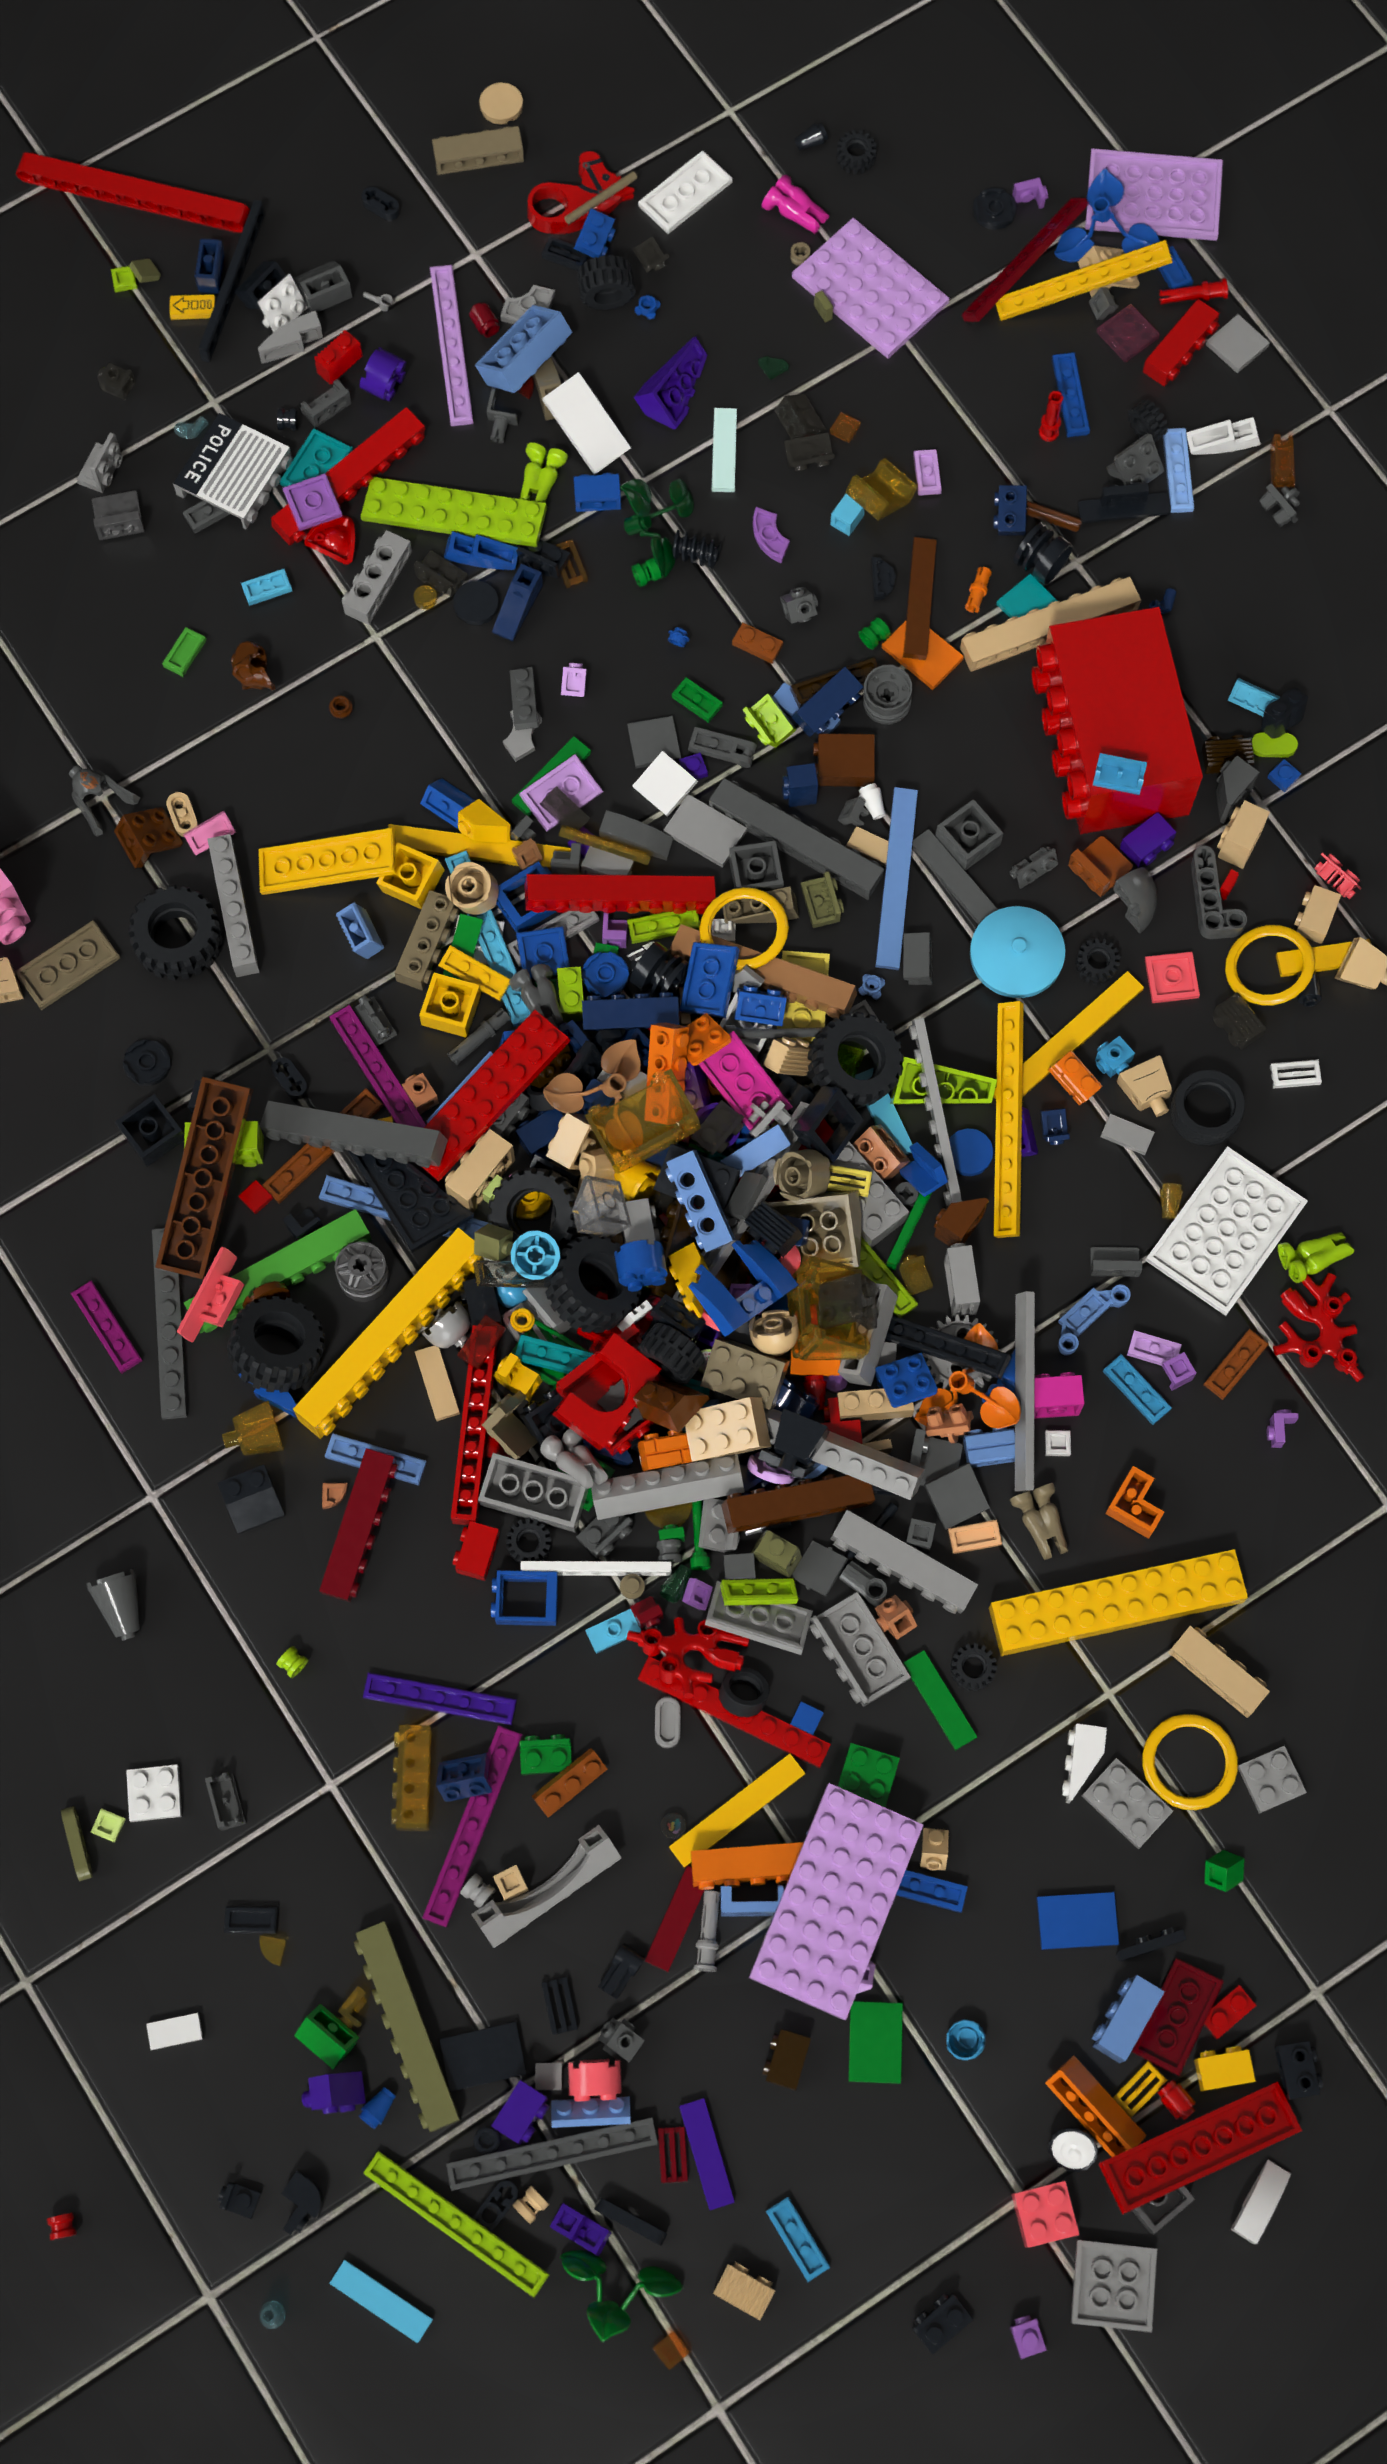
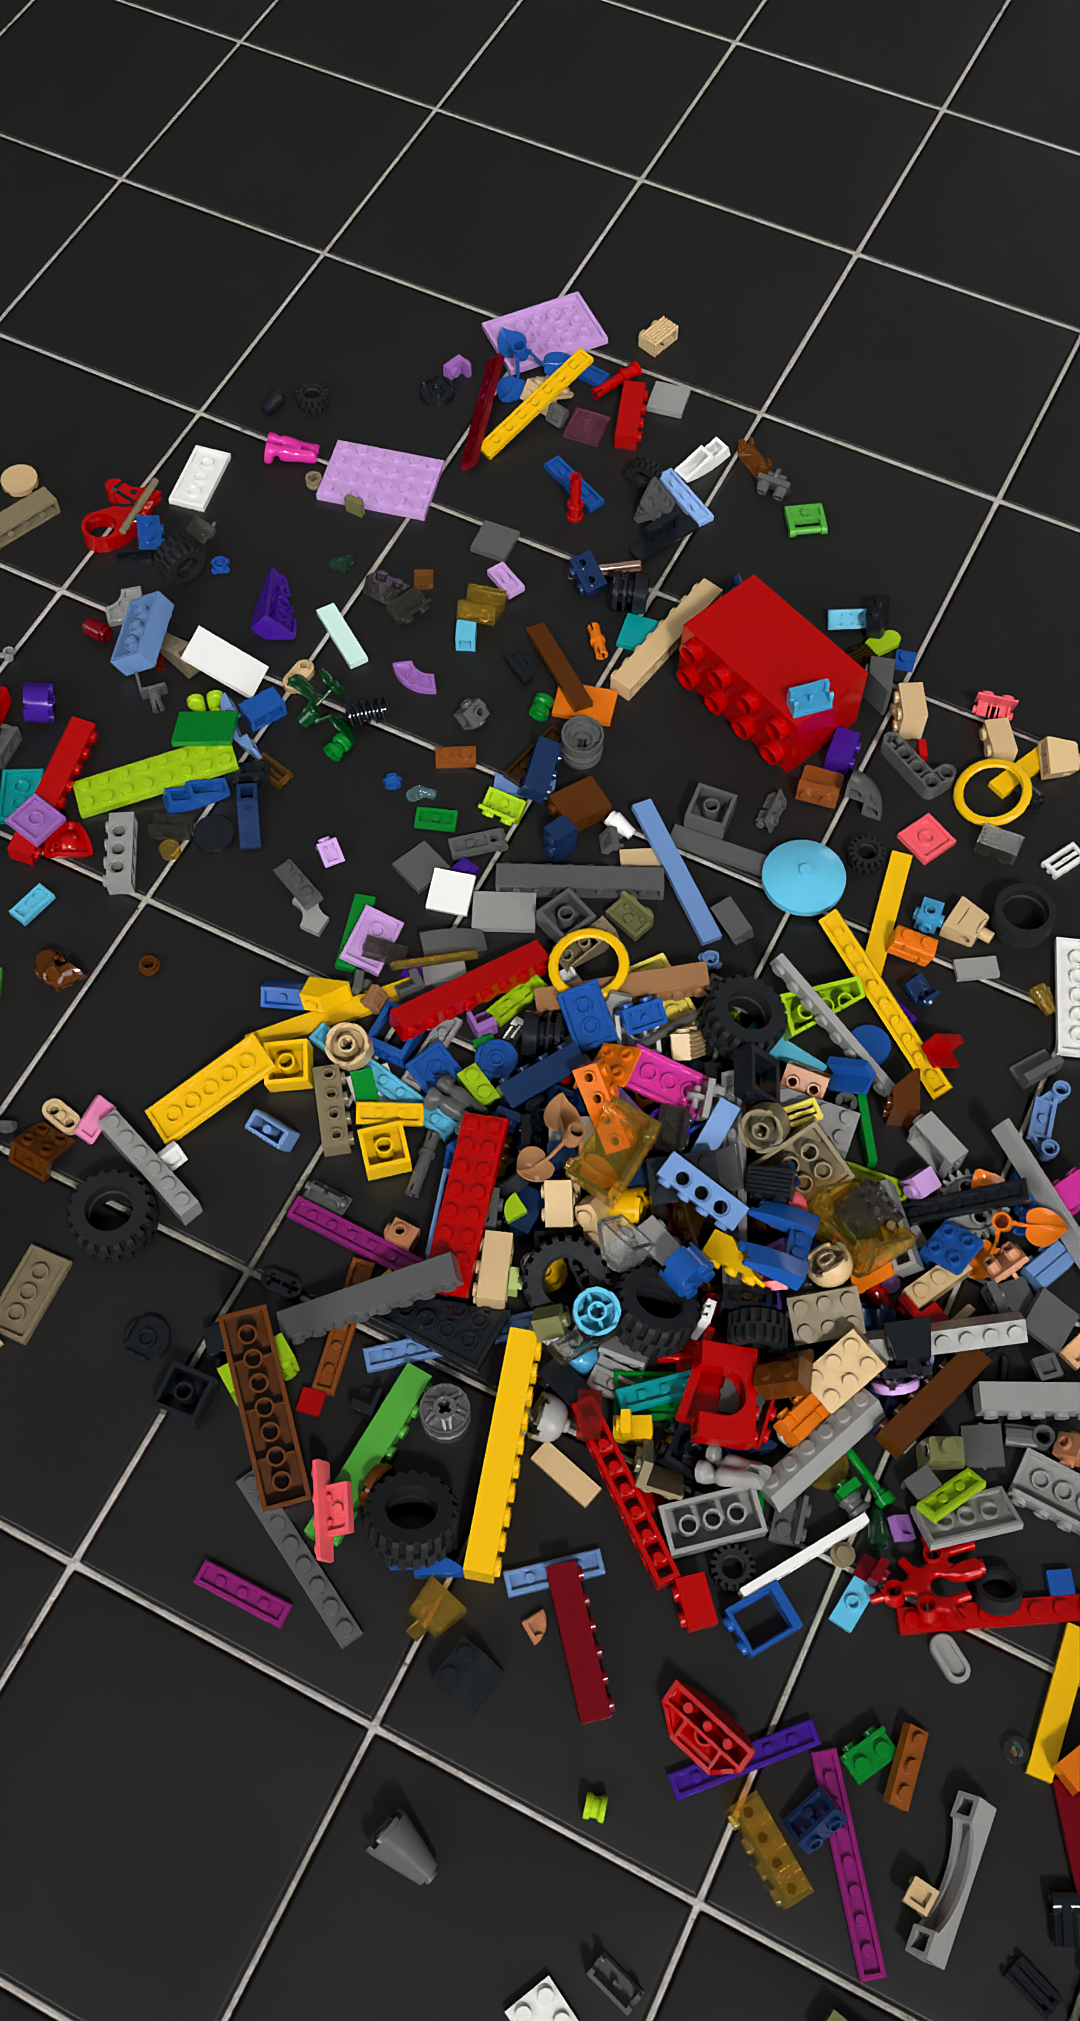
camera: 30 degrees left, 10 degrees down
(258, 906) = (172, 1156): none -> white tile
(419, 1654) = (705, 1731): none -> red wedge
(451, 345) = (81, 661): lavender tile -> none
(478, 1891) = (894, 1923): light grey wheel -> none
(522, 1312) = (607, 1370): yellow plate -> none
(525, 487) = (205, 728): none -> green tile
(530, 1123) = (513, 1209): none -> lime tile
(562, 479) = (244, 741): none -> medium blue slope
(655, 472) = (302, 667): none -> tan plate
(699, 662) = (419, 792): none -> clear light blue arm
(714, 1530) = (878, 1461): light grey bracket -> none
(915, 1274) = (893, 1162): clear yellow bracket -> none
(922, 1307) = (920, 1183): none -> lavender brick
(945, 421) = (495, 541): none -> dark grey tile
(1030, 1196) = (939, 1050): none -> red panel
(1275, 260) = (658, 336): none -> tan brick
(1290, 556) = (805, 515): none -> bright green plate

